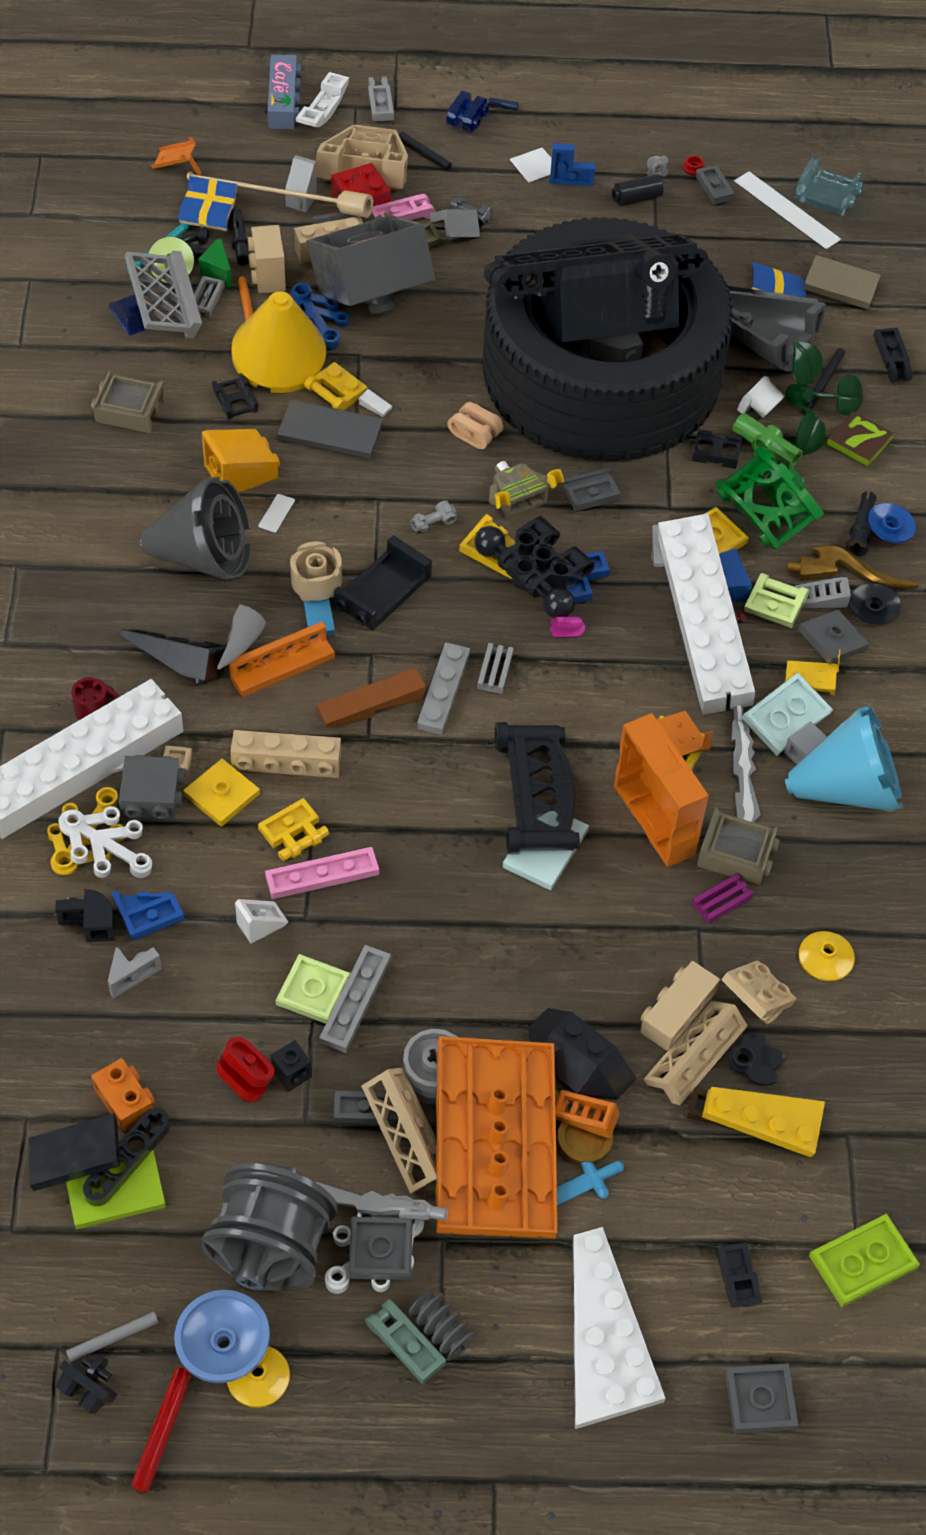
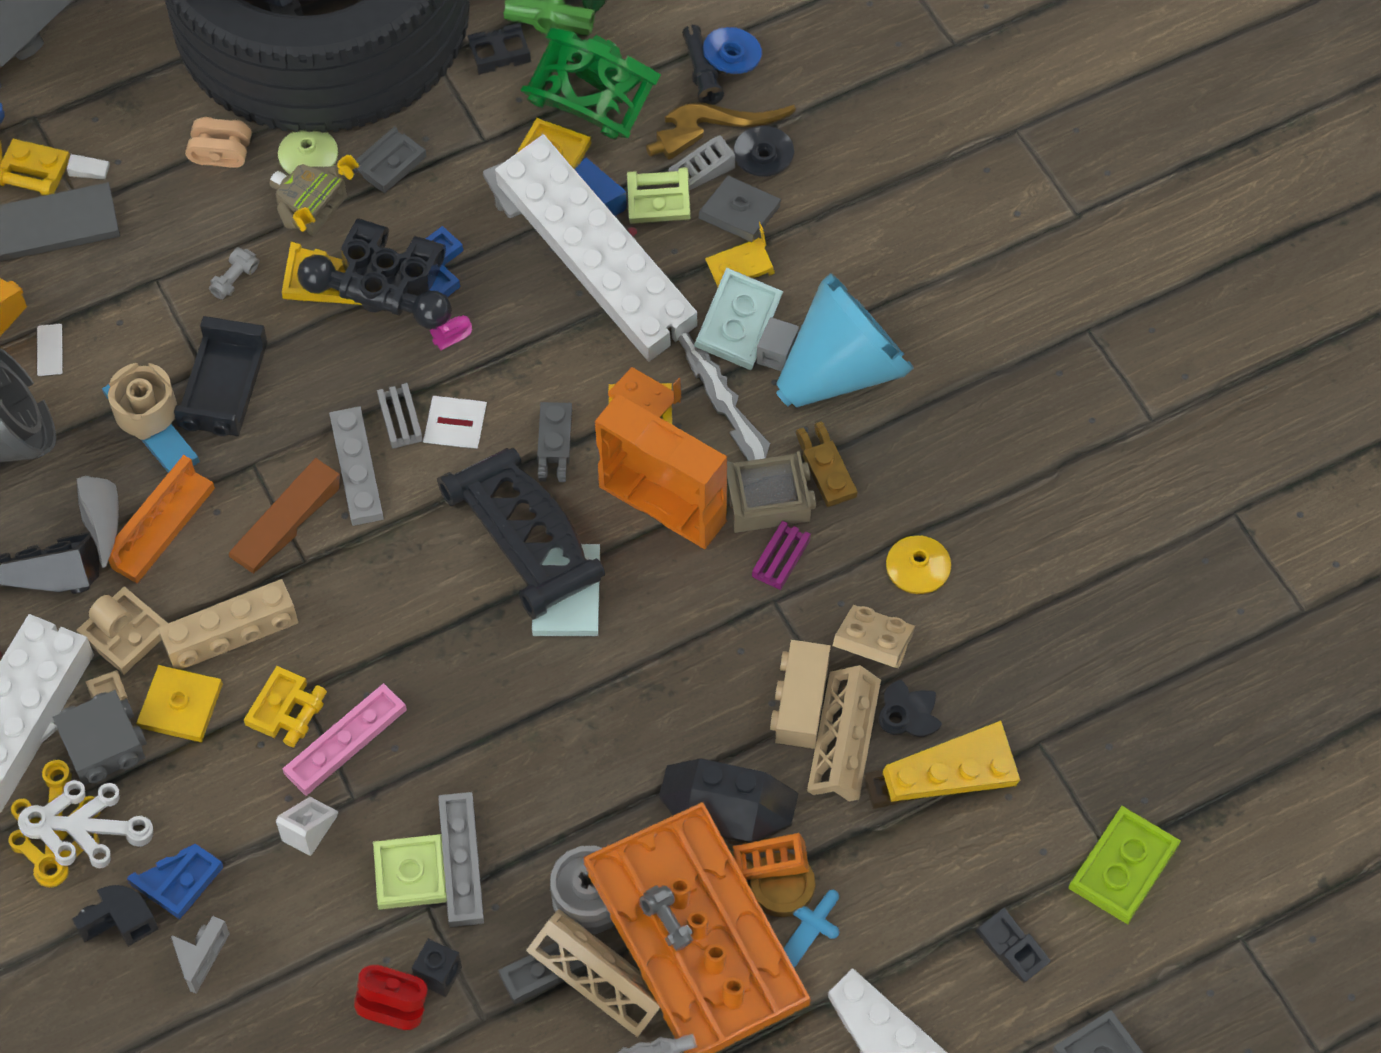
camera: 25 degrees left, 5 degrees up
(210, 721) = (122, 629): none -> tan plate
(476, 1097) = (658, 901): none -> dark grey bar
(533, 691) = (455, 422): none -> white sticker
(536, 457) = (321, 150): none -> yellowish green dish
(599, 736) = (554, 438): none -> dark grey hinge
(794, 851) = (827, 467): none -> pearl gold hinge

